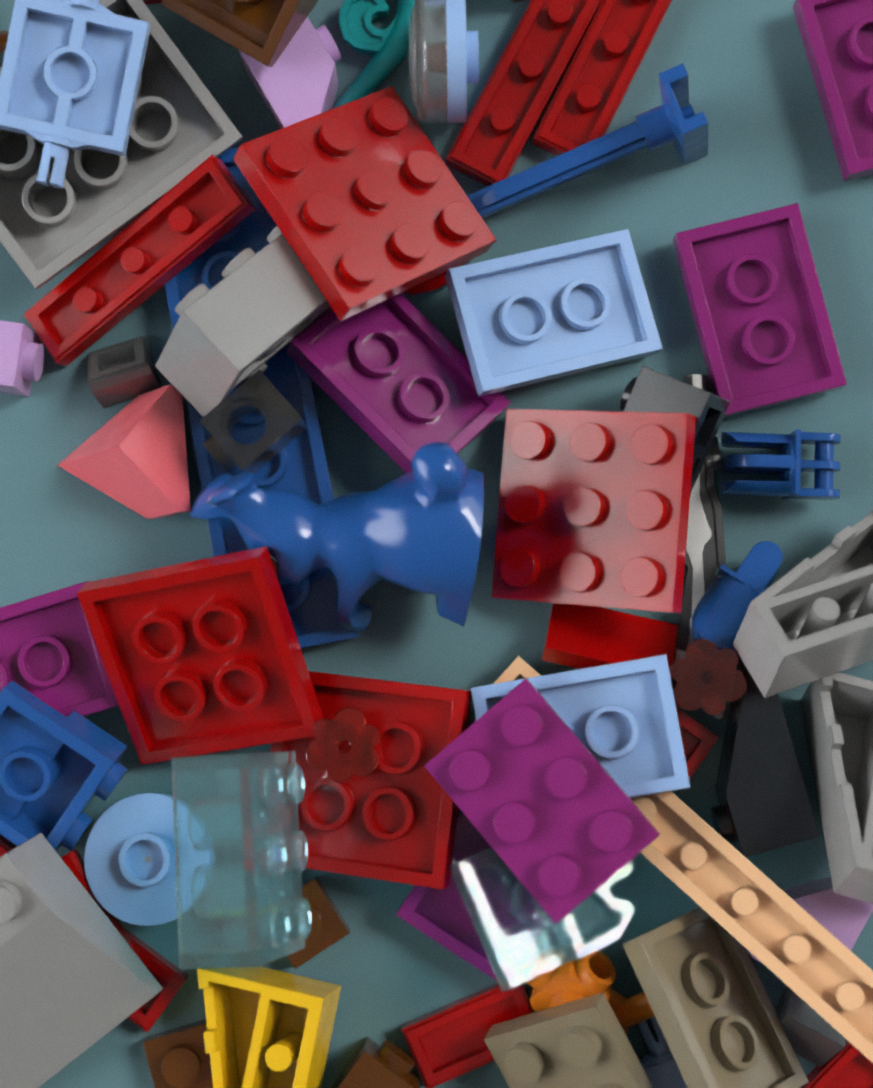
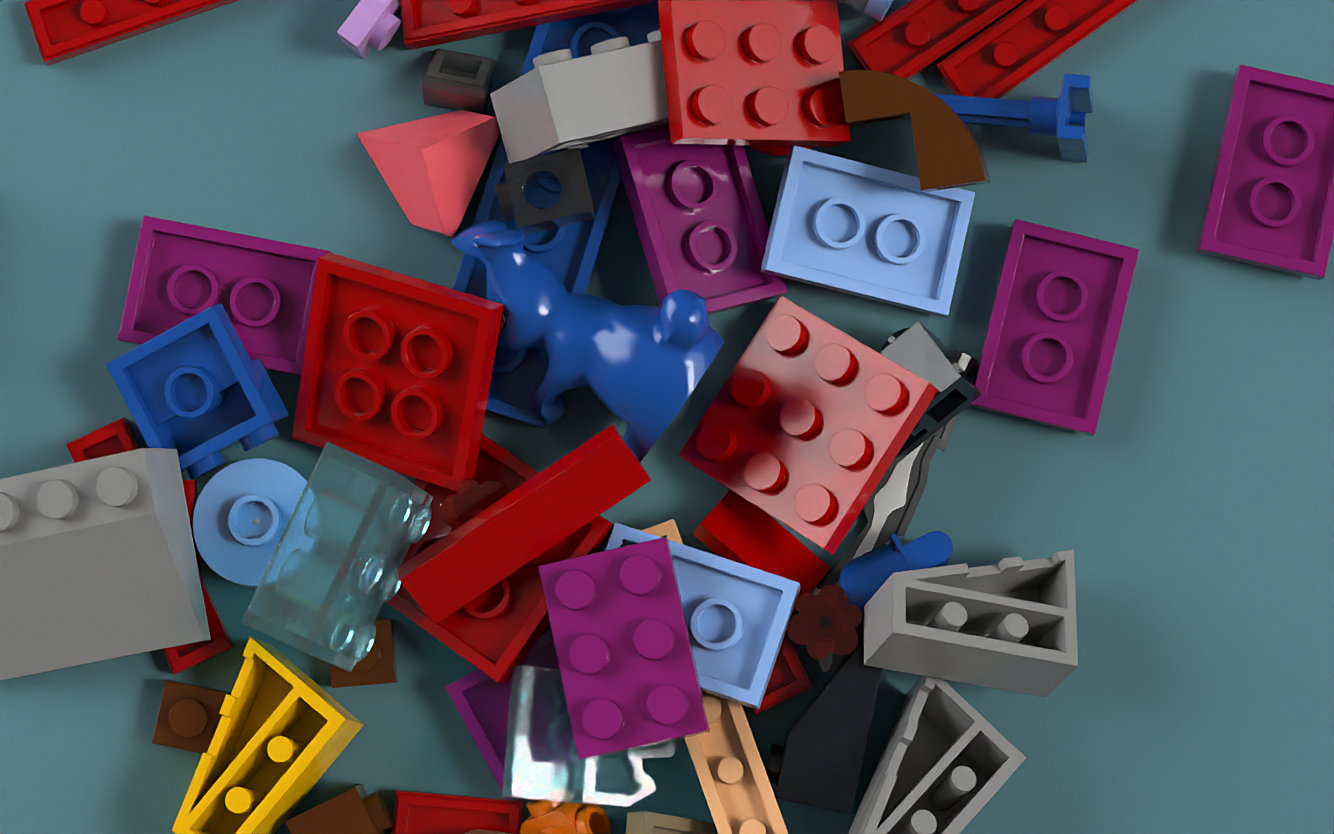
camera: 30 degrees right, 0 degrees up
(390, 735) = (523, 524): none -> red tile
(581, 193) = (942, 141): none -> reddish brown brick
(785, 465) = (1002, 477): blue arm -> none

